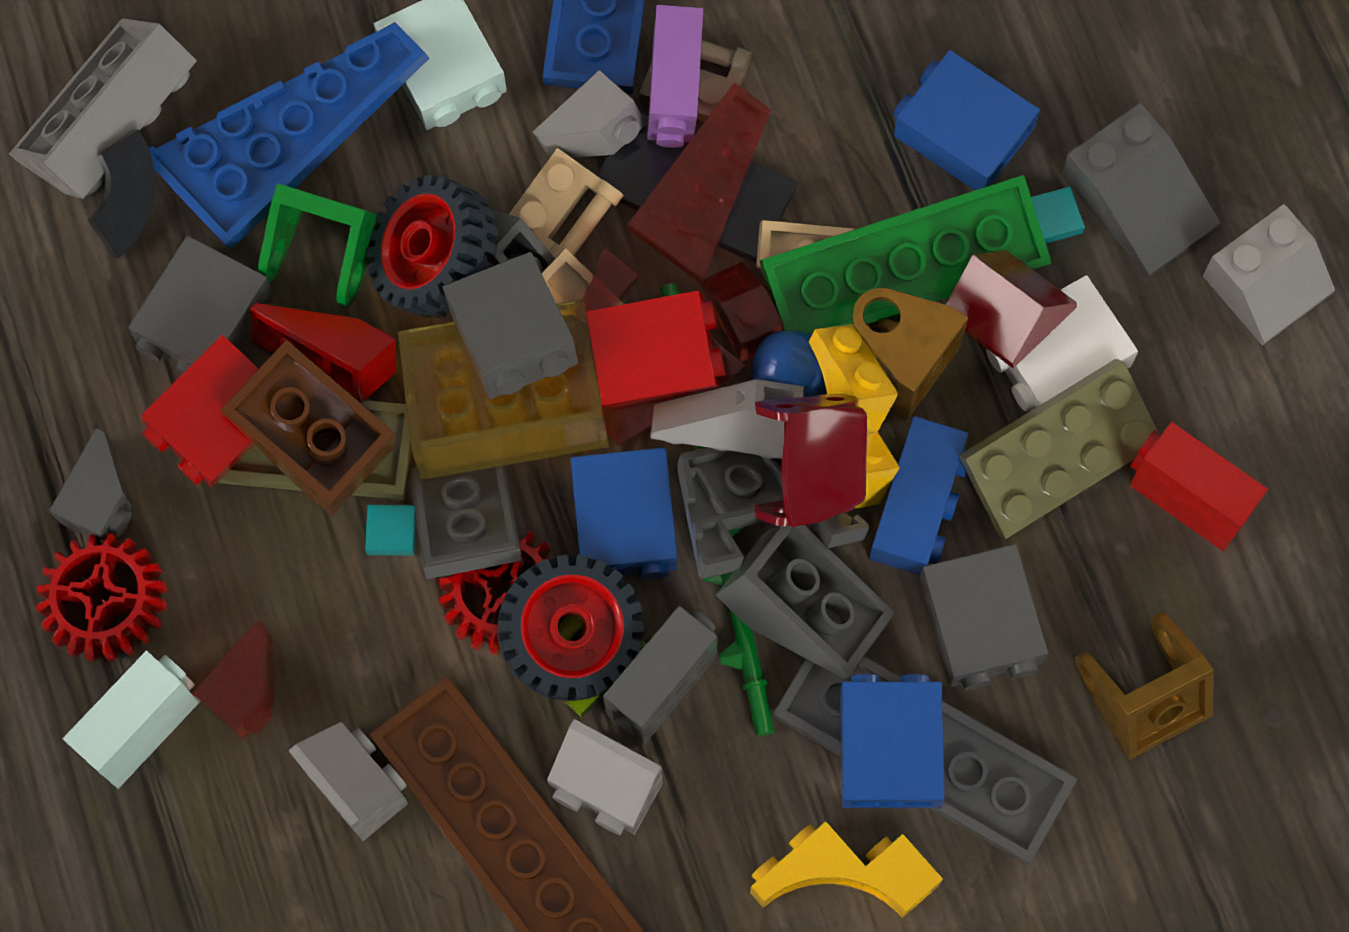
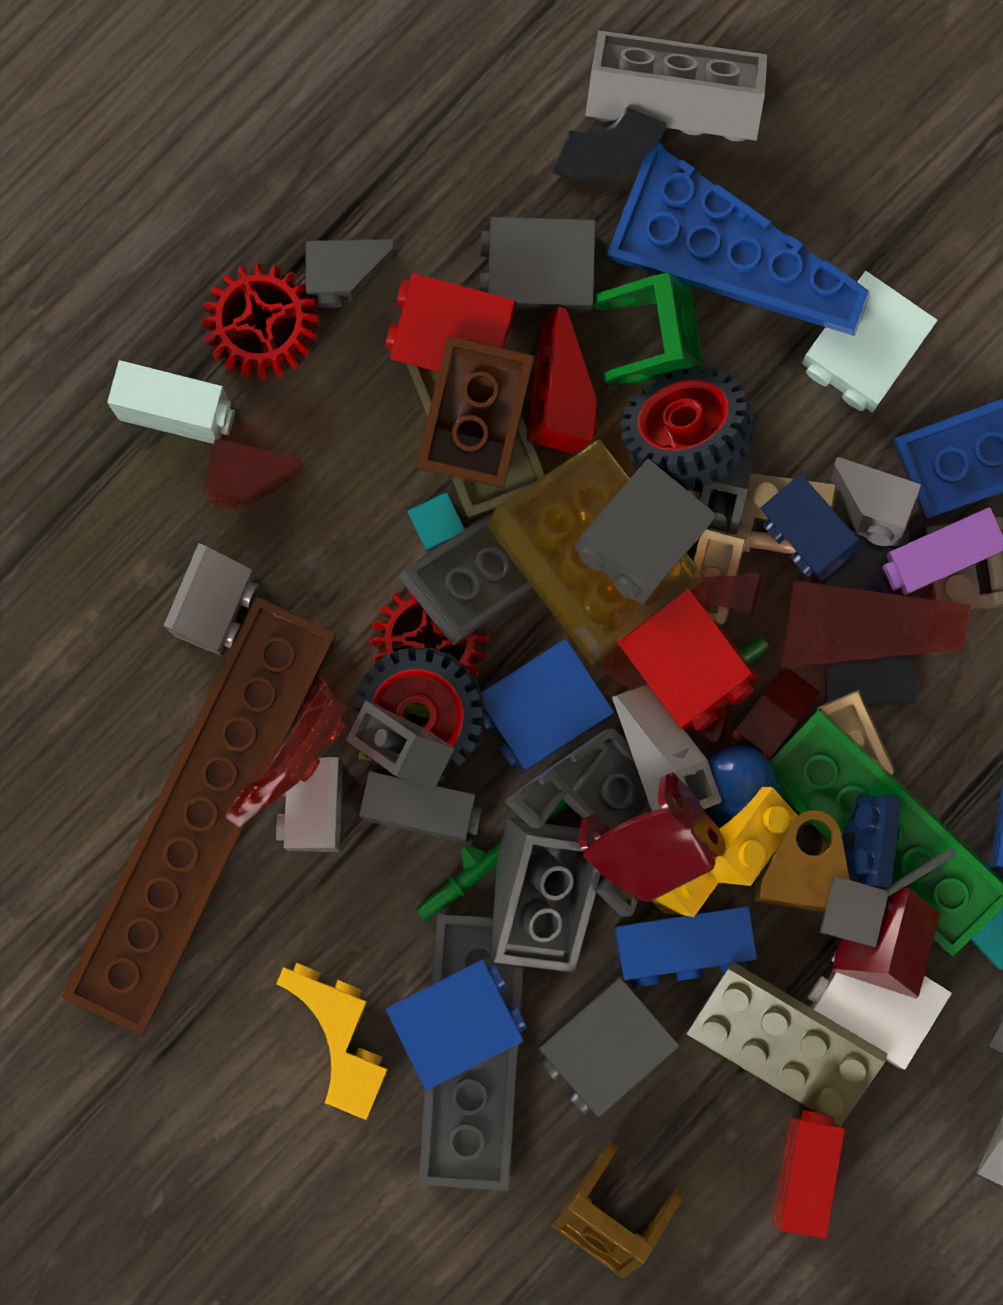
camera: 60 degrees right, 10 degrees up
(531, 723) = (297, 755): none -> clear red wing
(587, 182) = (810, 528): none -> dark blue brick
(592, 652) = (400, 745): none -> dark grey slope
(910, 267) = (871, 840): none -> dark blue wing
(968, 308) = (857, 910): none -> dark grey piece

